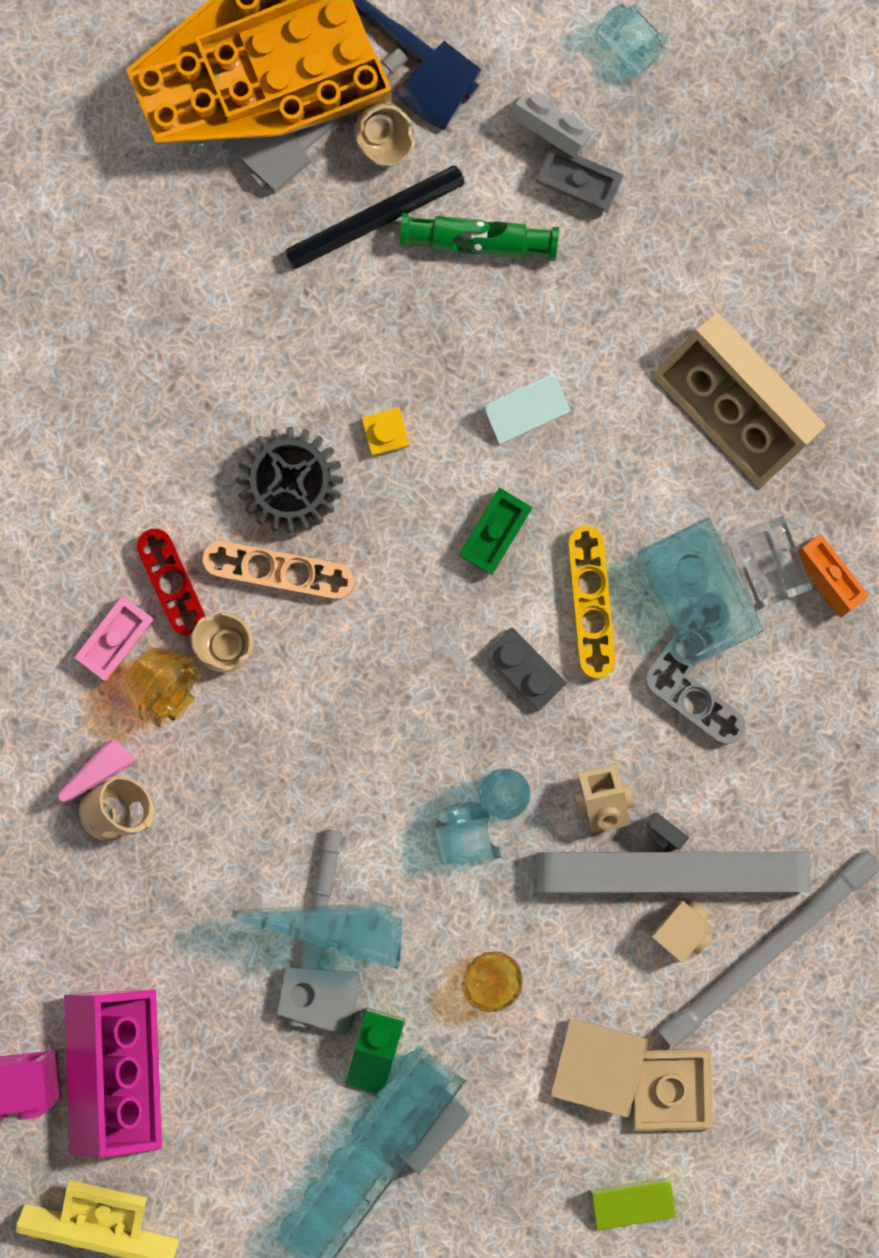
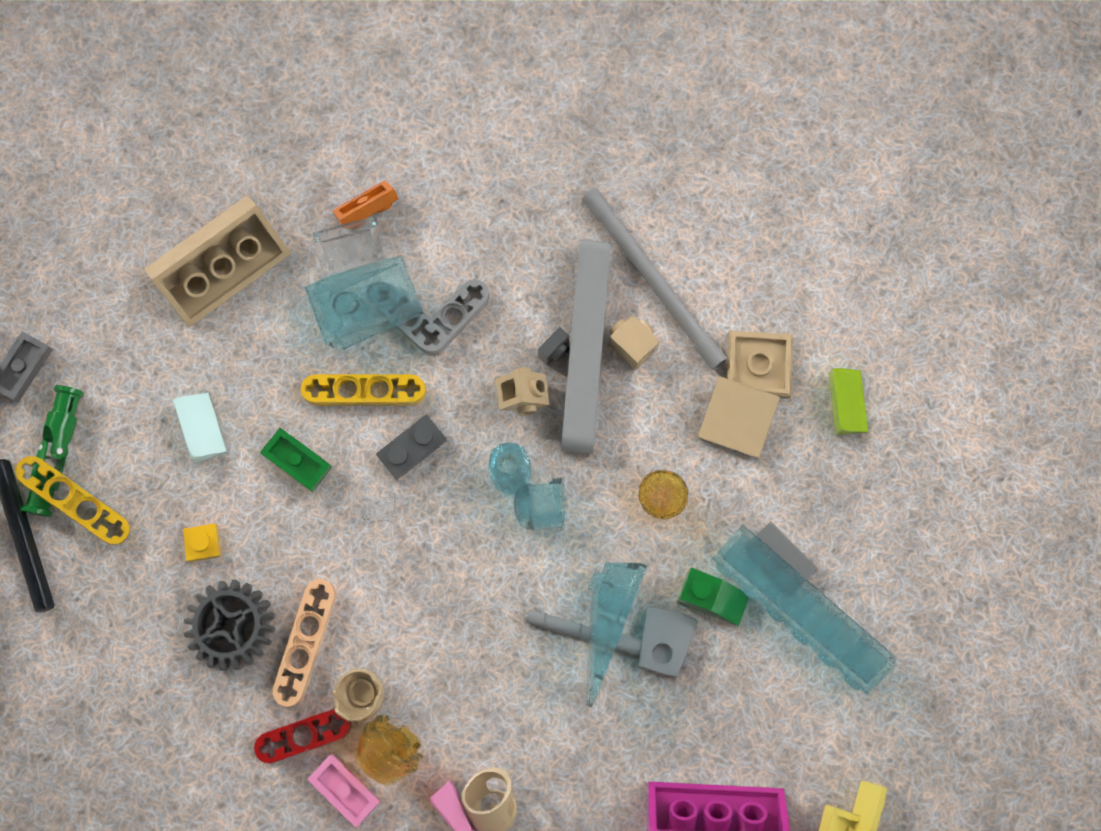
camera: 85 degrees left, 10 degrees down
(420, 275) = (70, 504): none -> yellow beam

